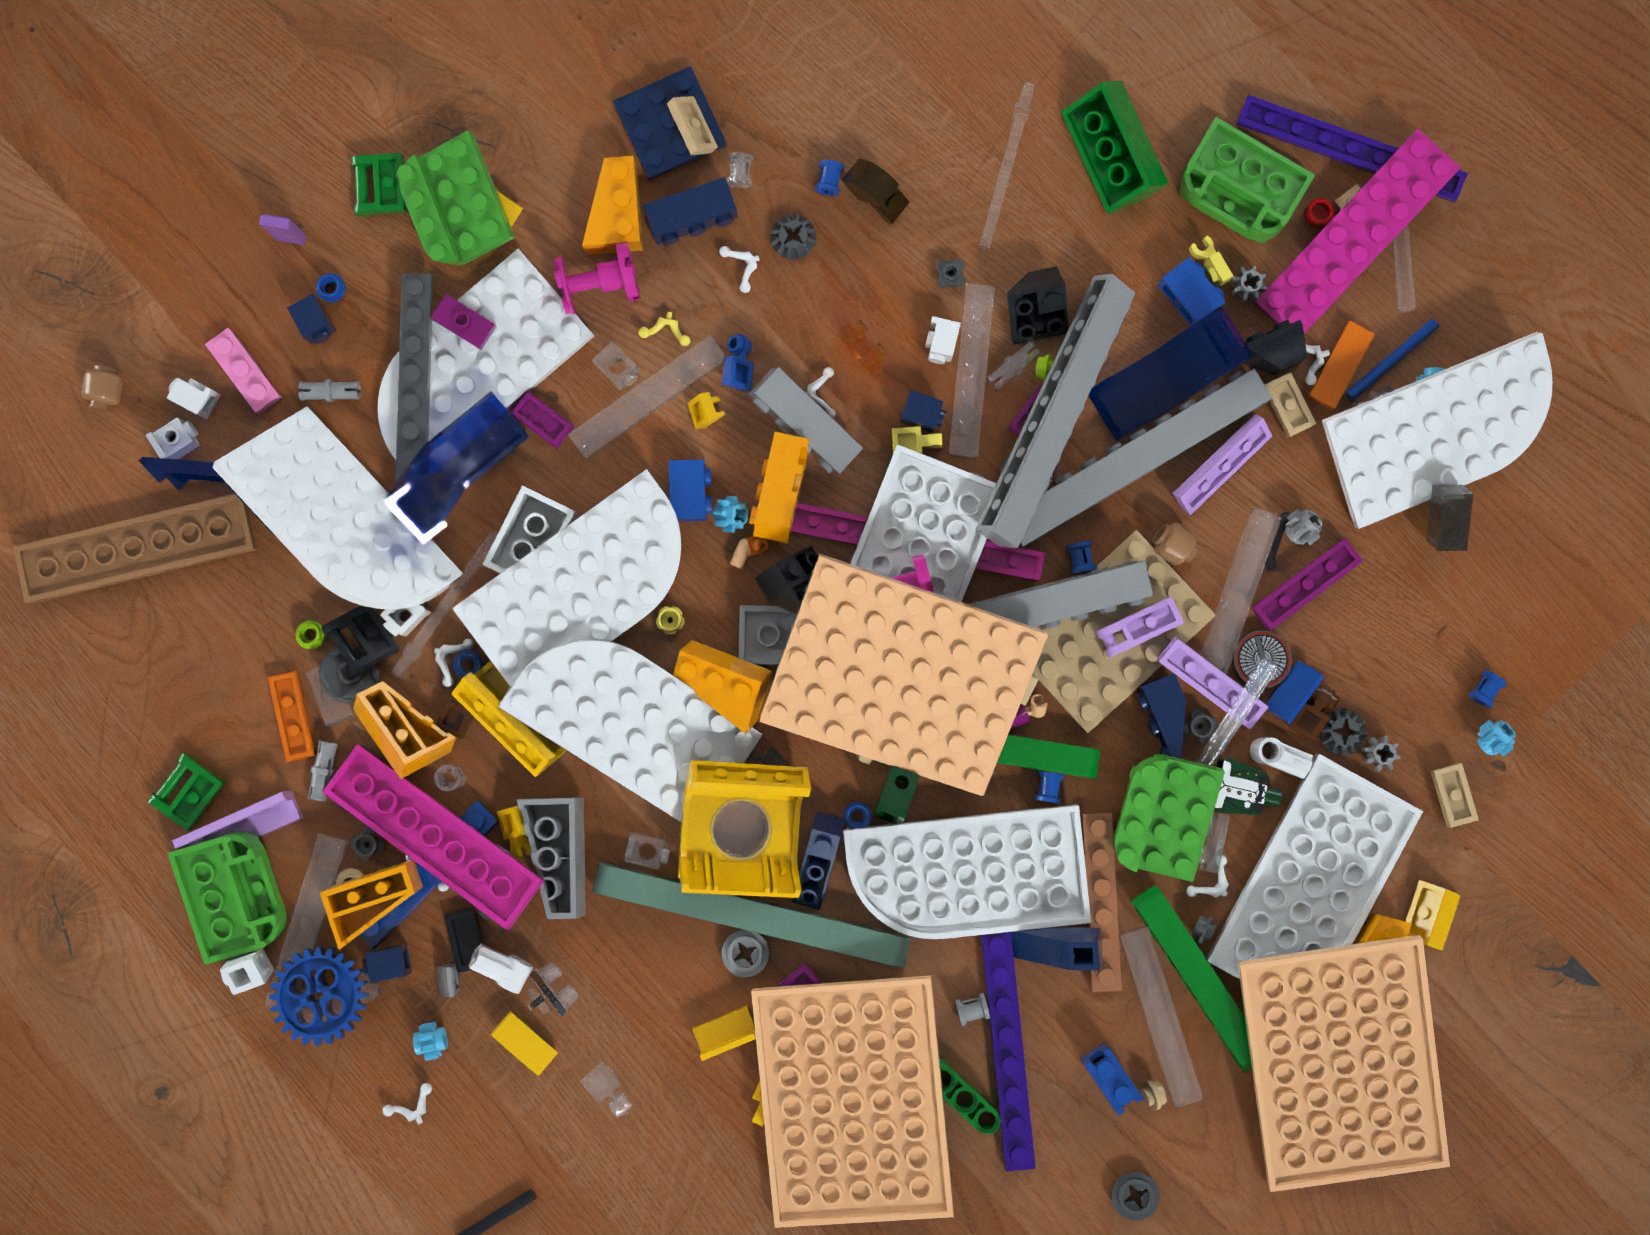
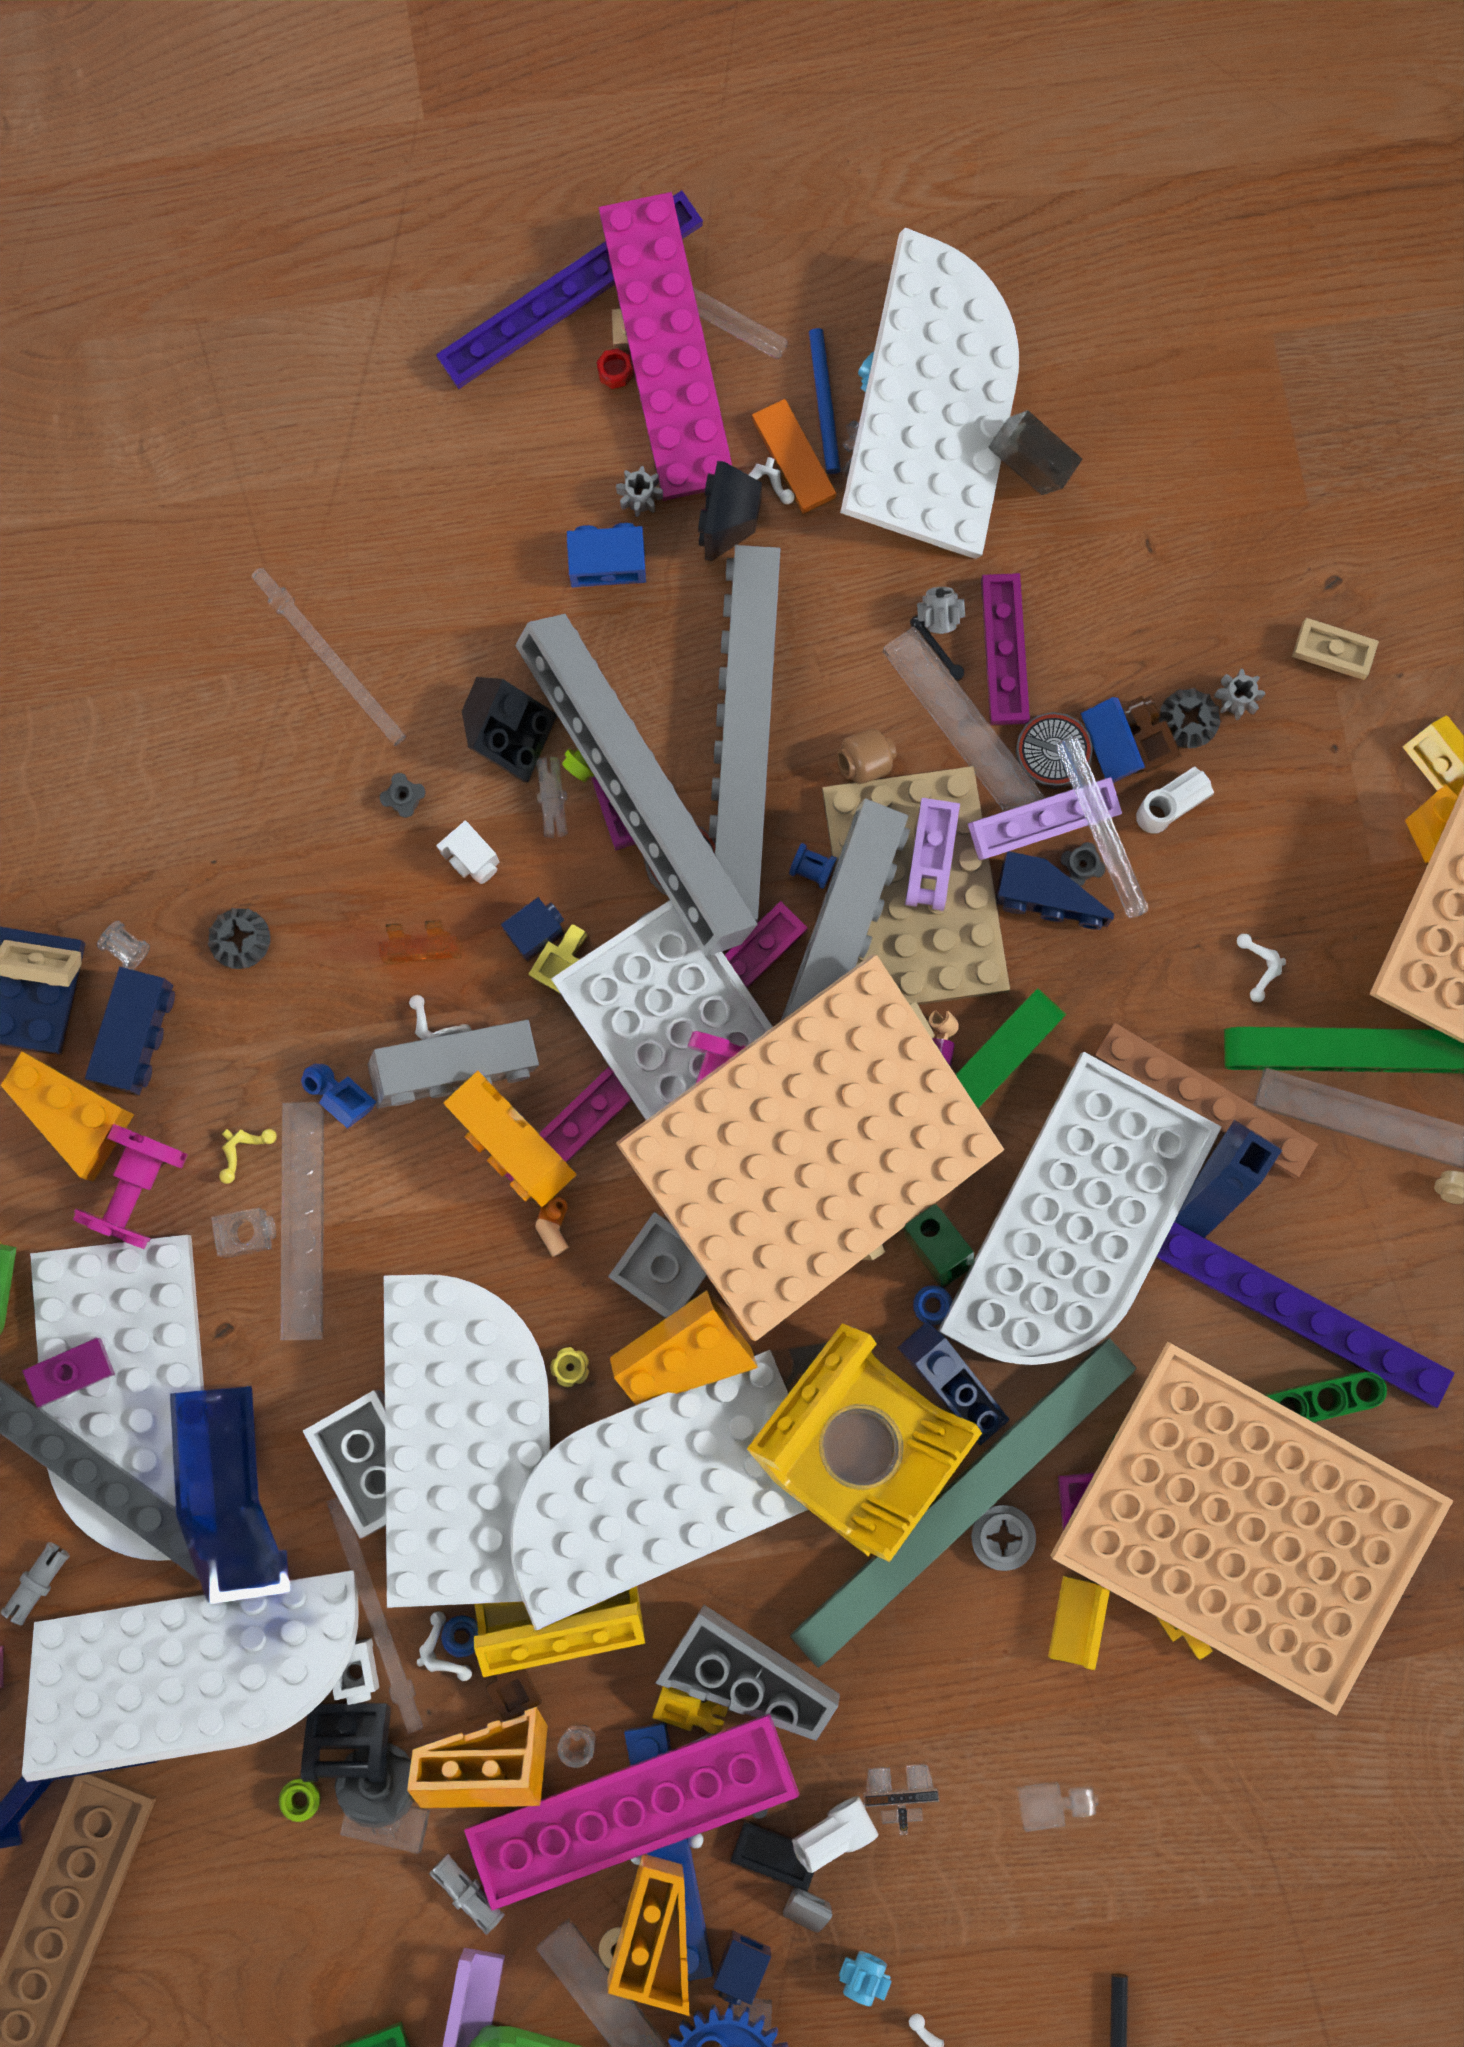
camera: 55 degrees left, 5 degrees down
(292, 716) = (378, 1887): orange tile -> none
(358, 844) = (596, 1908): dark grey plate -> none
(524, 1043) = (939, 1867): yellow slope -> none
(542, 420) = (243, 1358): magenta plate -> none
(633, 850) = (807, 1589): clear brick -> none
(688, 490) = (438, 1245): blue brick -> none
(703, 410) = (362, 1168): yellow tile -> none
(730, 514) = (499, 1217): medium azure gear -> none
(750, 261) = (230, 1003): white piece -> none
(788, 579) = (619, 1200): black slope -> none
(829, 178) = (203, 854): blue bush -> none
(876, 187) = (250, 809): dark brown brick -> none
(971, 371) = (526, 845): clear plate -> none
(972, 1009) = (1232, 1323): light grey bush -> none
(1049, 787) = (1041, 1071): blue bush -> none
(1111, 1078) = (1408, 1220): blue brick -> none
(1114, 146) = (390, 529): green slope -> none
(1167, 815) = (1158, 964): bright green plate -> none
(1170, 374) = (679, 636): clear blue windscreen -> none
(1204, 929) = (1308, 1009): dark grey plate -> none
(1214, 844) = (1229, 944): clear plate -> none
(1215, 266) = (592, 511): light yellow plate -> none
(1222, 464) = (815, 649): lavender plate -> none
(1243, 183) = (526, 424): bright green plate -> none
(1244, 789) = (1180, 867): torso -> none
(1289, 405) = (800, 536): tan plate -> none
(1317, 869) = (1321, 846): white plate -> none
(1487, 689) = (1244, 539): blue bush -> none
(1496, 737) = (1302, 564): medium azure gear -> none

